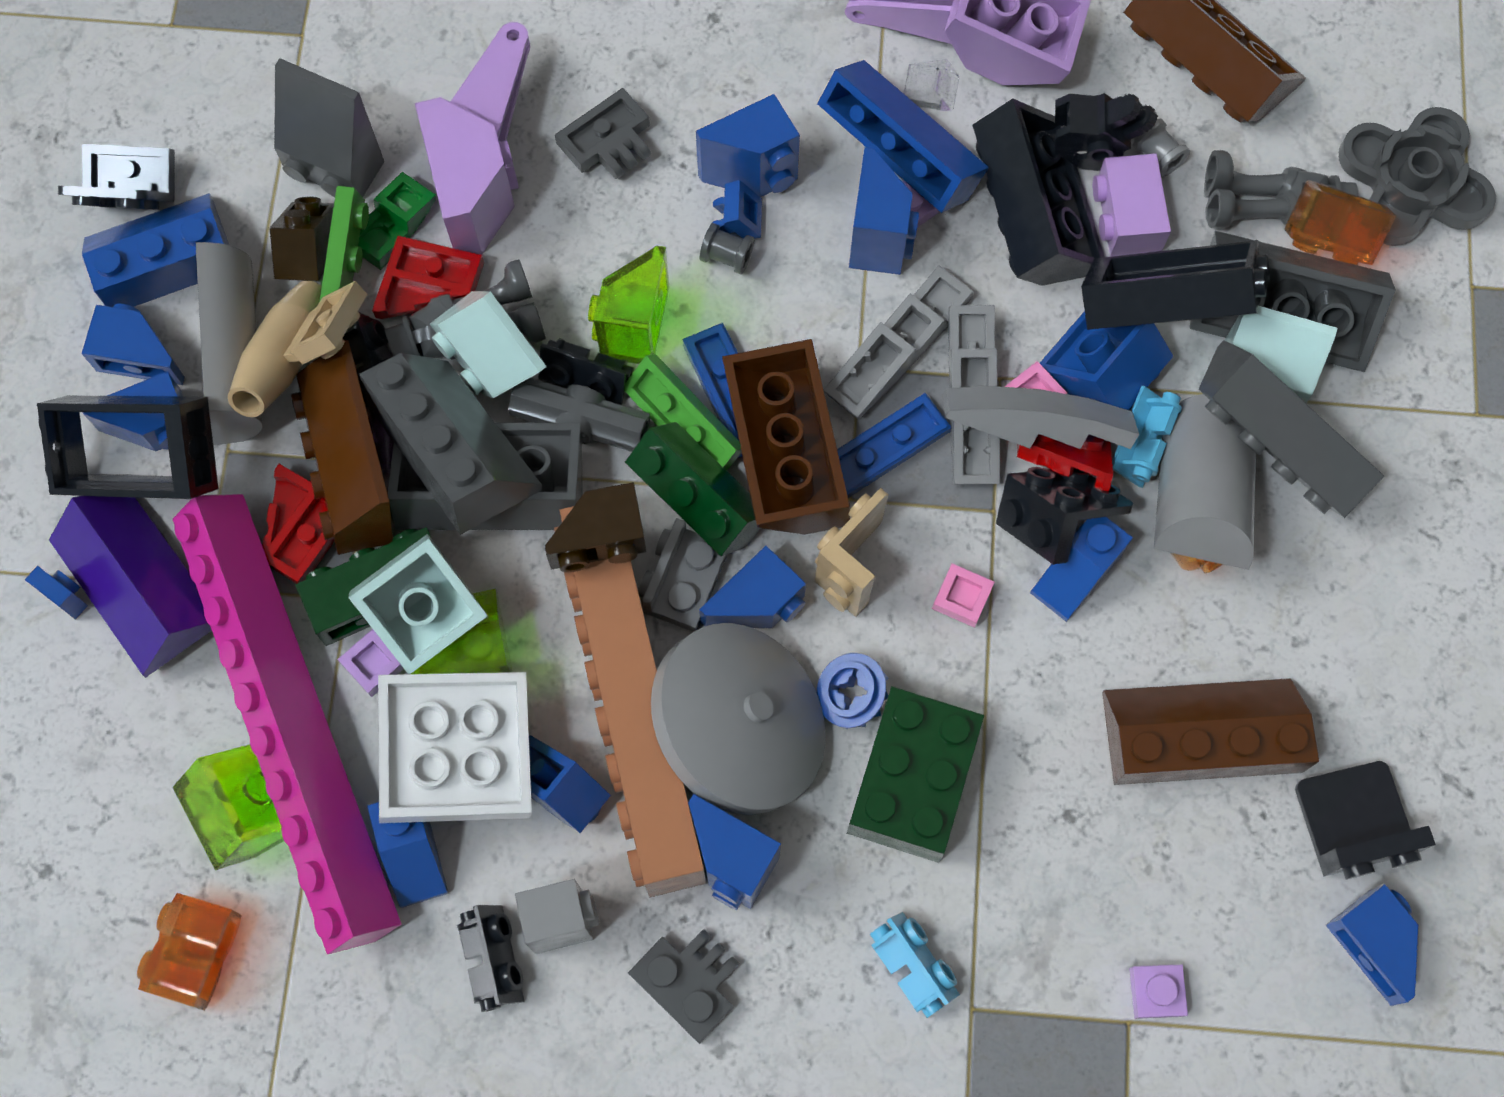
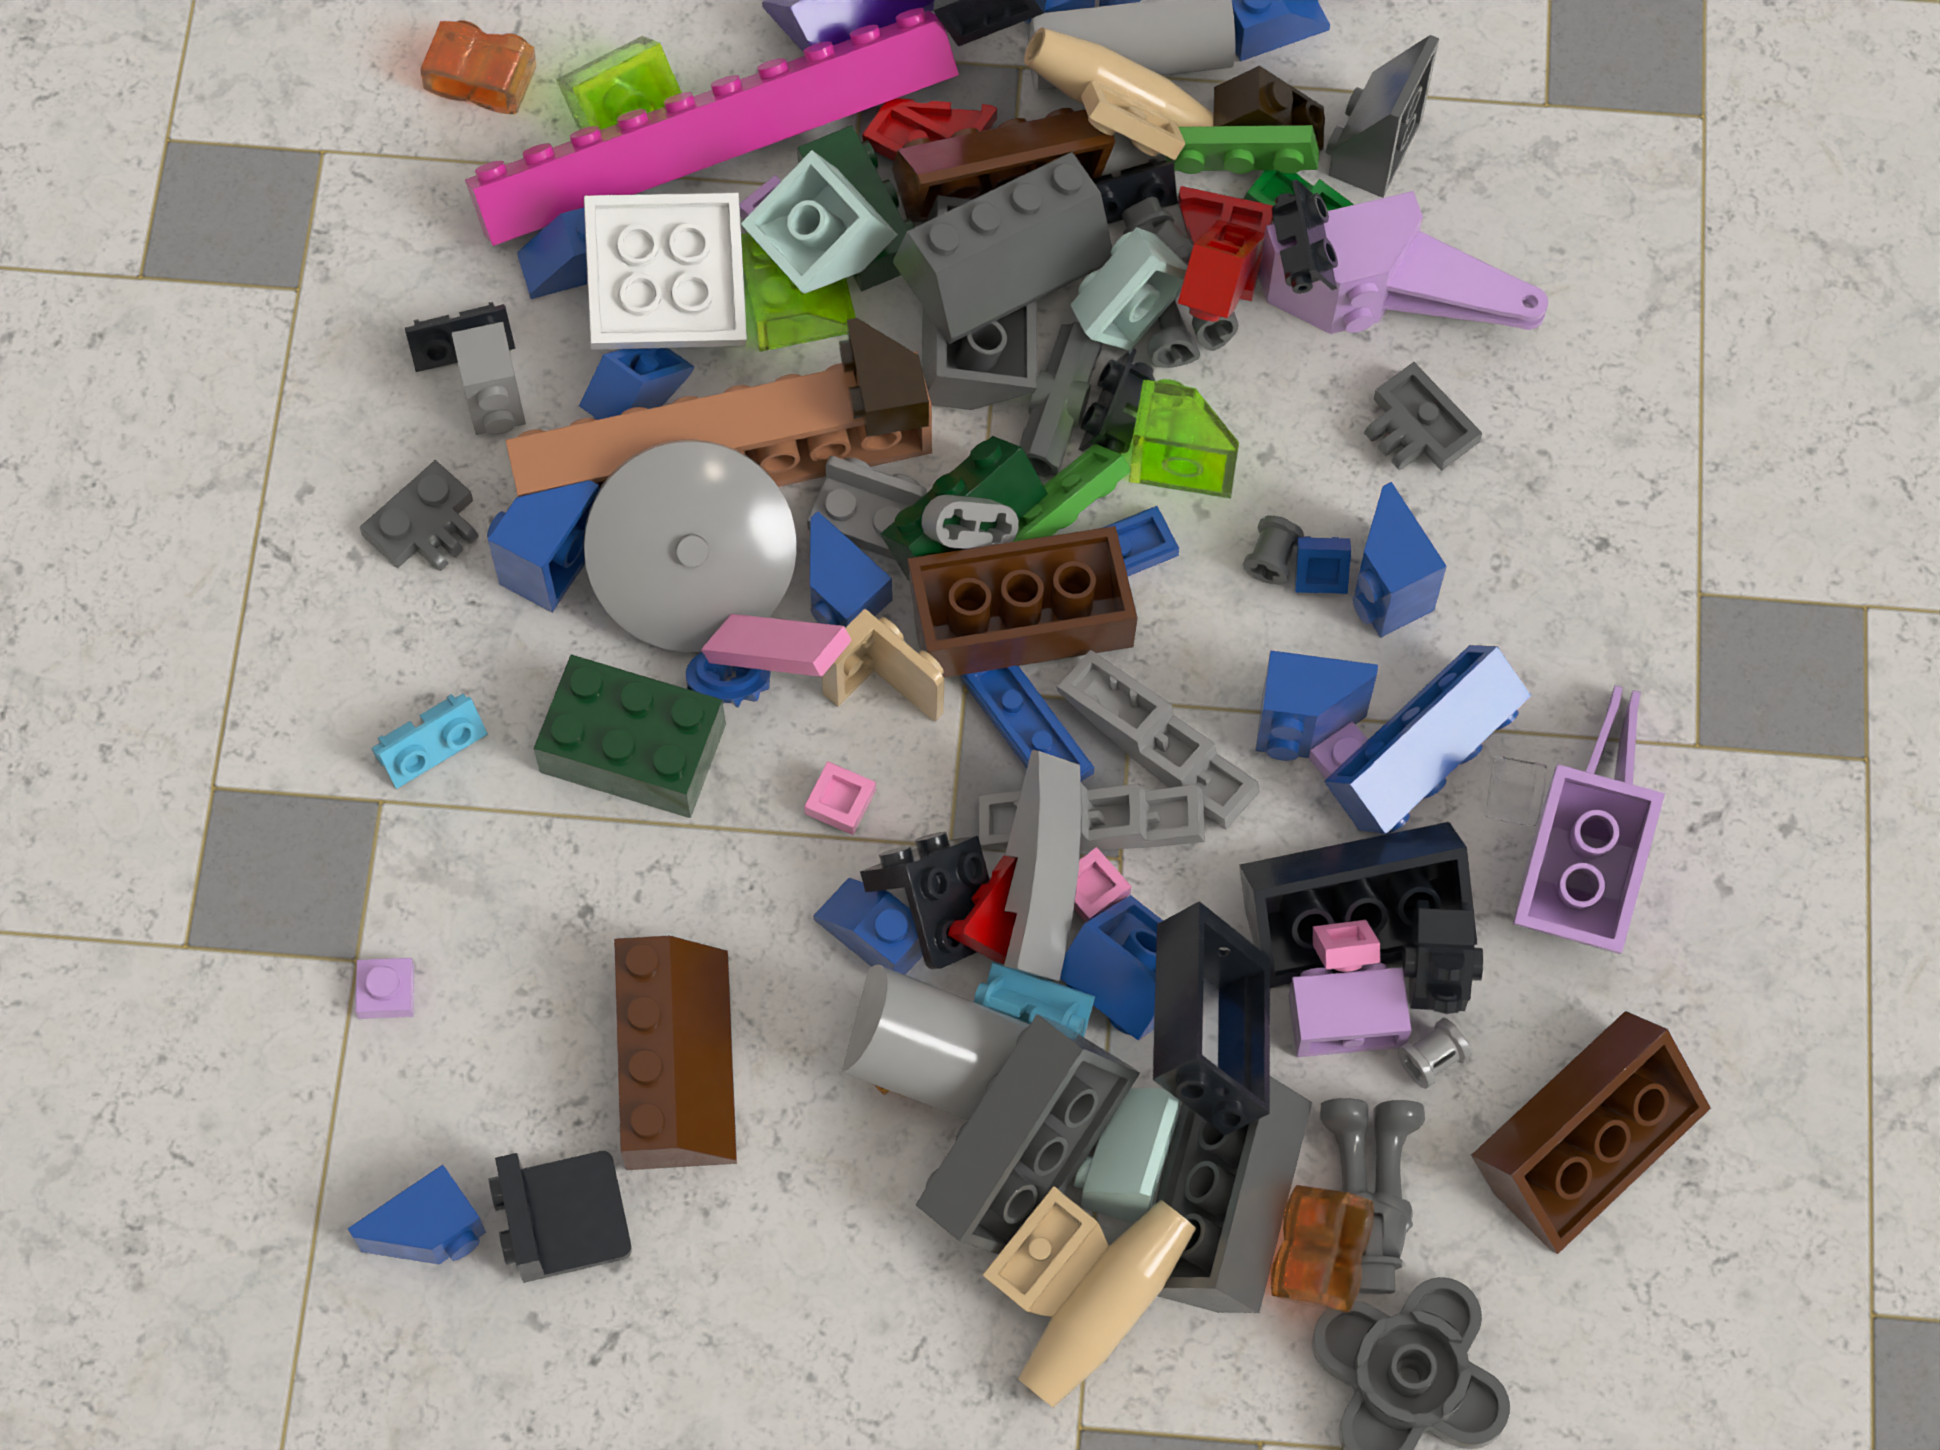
camera: 90 degrees right, 5 degrees down
(446, 185) = (1302, 220): none -> black hinge
(477, 259) = (1220, 270): none -> red slope
(721, 473) = (972, 513): none -> light grey beam
(848, 632) = (776, 645): none -> bright pink tile
(1089, 195) = (1346, 945): none -> bright pink plate
(1387, 397) = (1089, 1289): none -> tan plate

